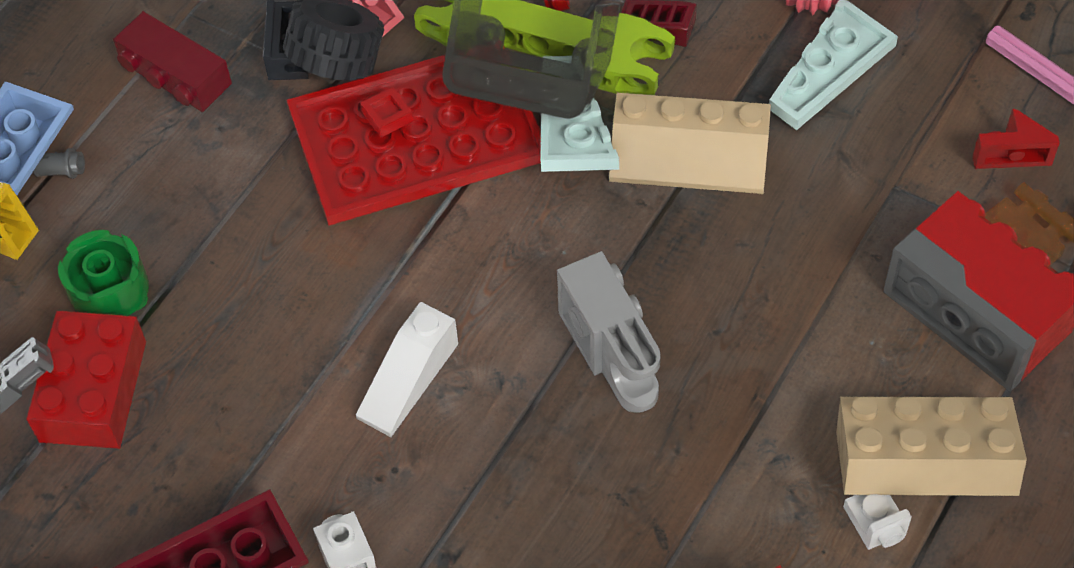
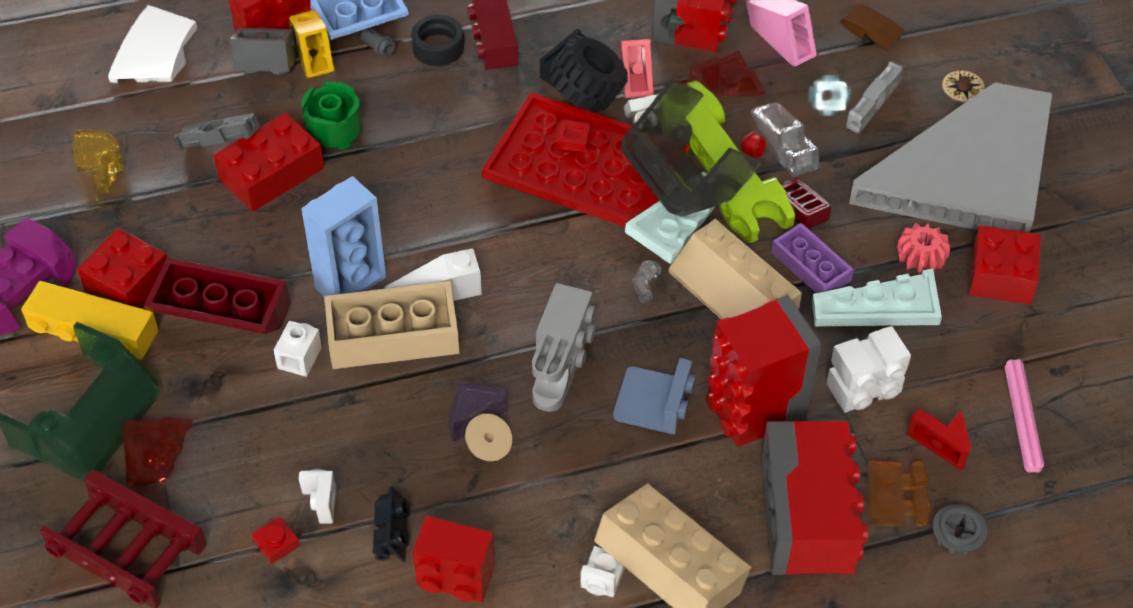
camera: 40 degrees right, 5 degrees down
(118, 94) = (437, 25): none -> black tyre
(298, 395) = (344, 239): none -> light blue brick
(413, 37) = (637, 107): none -> white tile
(419, 446) = (391, 325): none -> tan brick
(586, 460) = (472, 401): none -> clear purple slope
(598, 207) = (642, 277): none -> clear arm
(633, 479) = (488, 437): none -> tan piece
(730, 69) = (811, 260): none -> medium lavender piece
(743, 309) = (655, 398): none -> sand blue bracket
(837, 202) = (762, 369): none -> red piece
(902, 132) = (868, 369): none -> white brick

